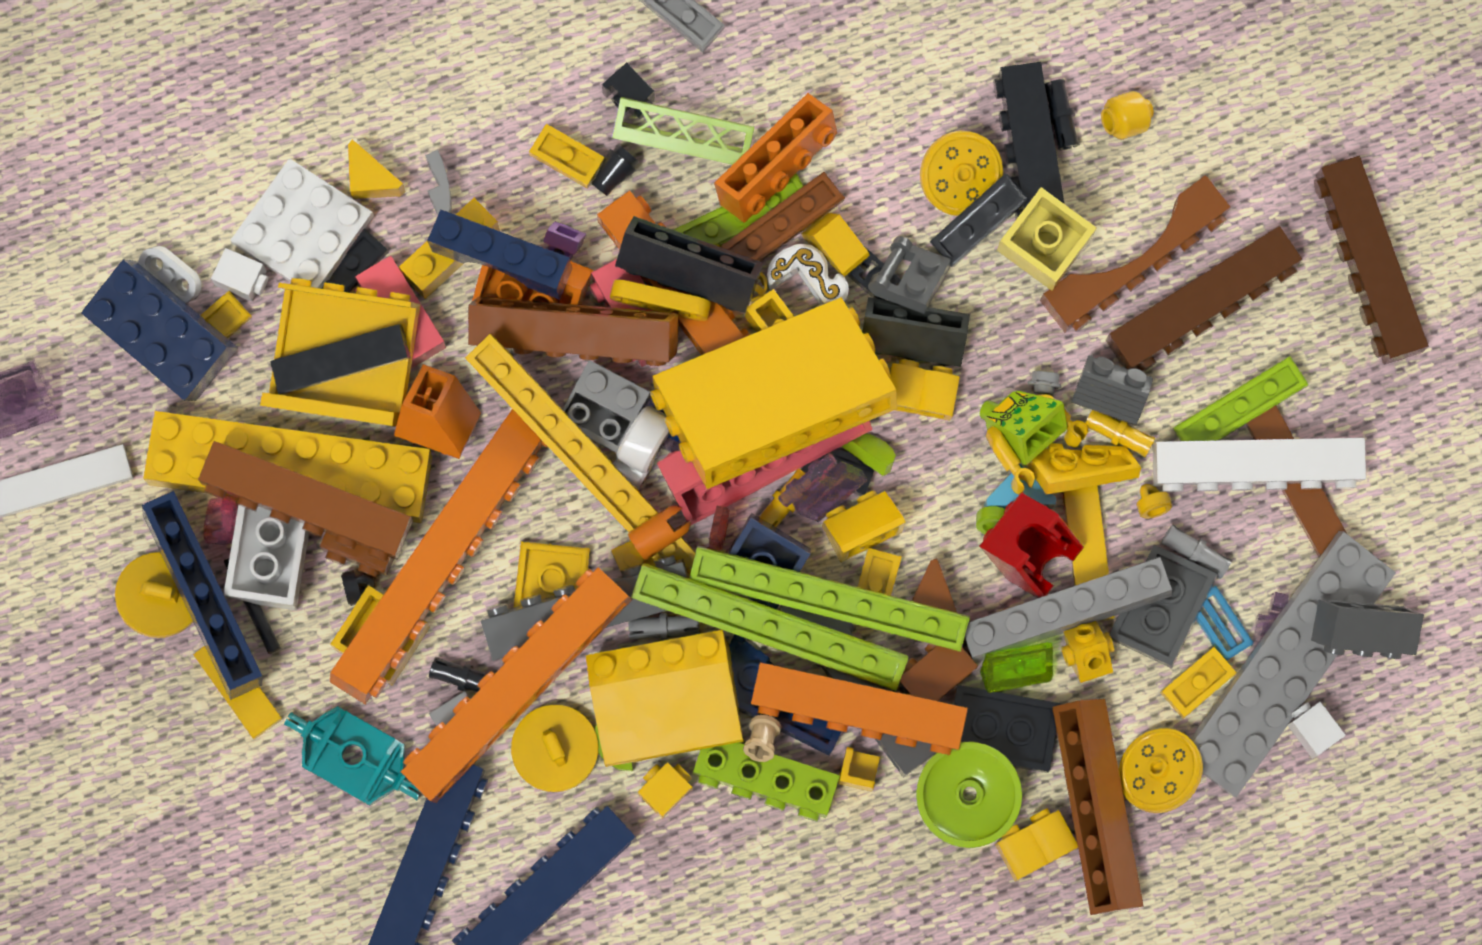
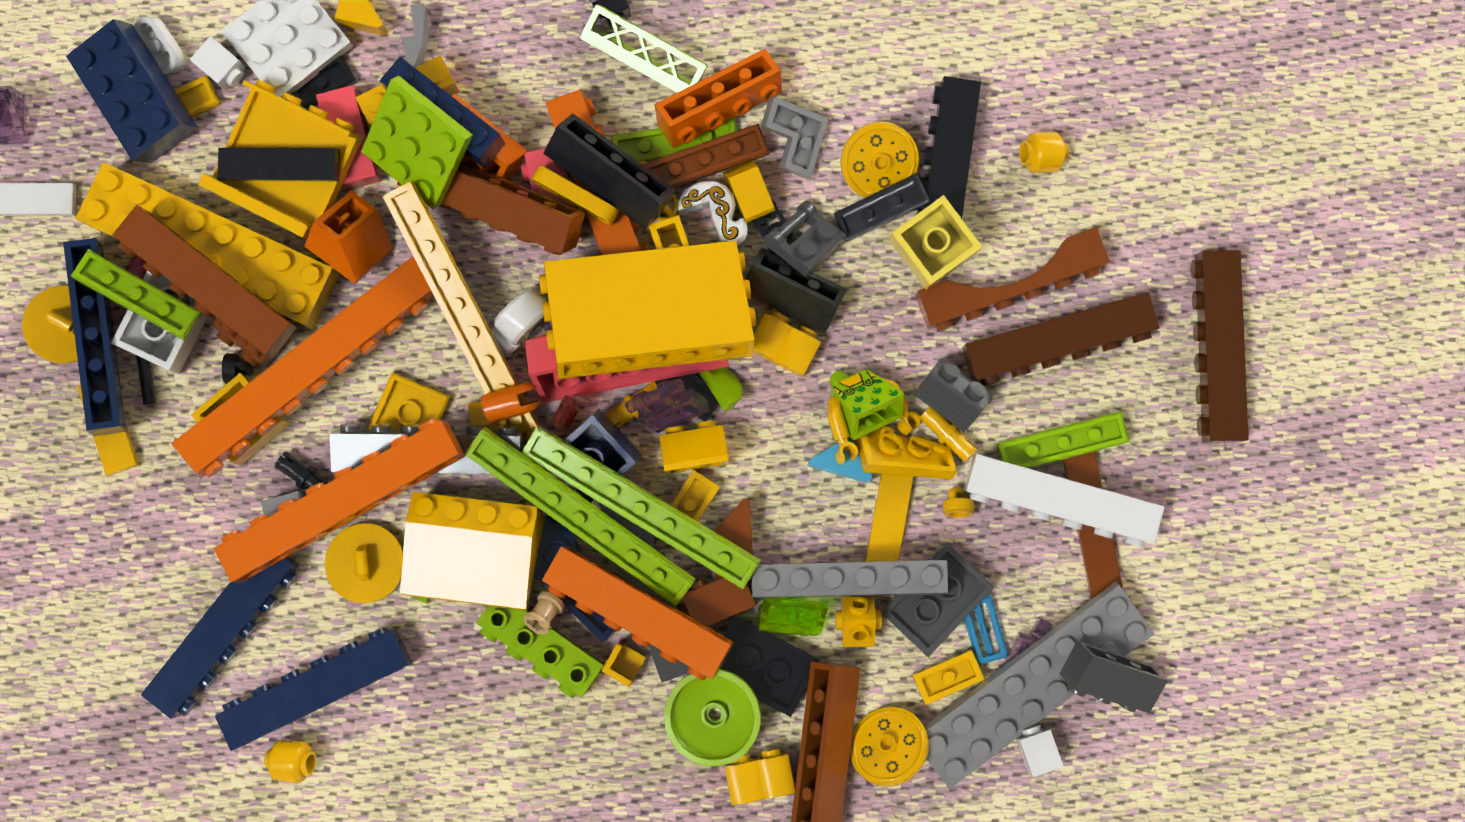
camera: 20 degrees right, 5 degrees up
(237, 536) = (136, 295): none -> lime tile
(373, 776) = (166, 499): teal plate -> none
(483, 292) = (416, 141): none -> lime plate
(564, 238) = (511, 115): medium lavender tile -> none
(566, 156) = (537, 42): yellow plate -> none
(605, 405) = (498, 273): light grey slope -> none
(615, 169) = (576, 67): black cone -> none
(663, 627) = (490, 486): light grey pin -> none
(665, 787) = (449, 628): yellow brick -> none
(872, 165) = (803, 131): none -> light grey plate
(988, 517) = (811, 479): lime tile -> none
(1026, 541) = (832, 508): red piece -> none
(1044, 382) = (895, 369): light grey plate -> none
(1061, 114) = (985, 134): black pin -> none
(1196, 551) = (983, 560): light grey pin -> none

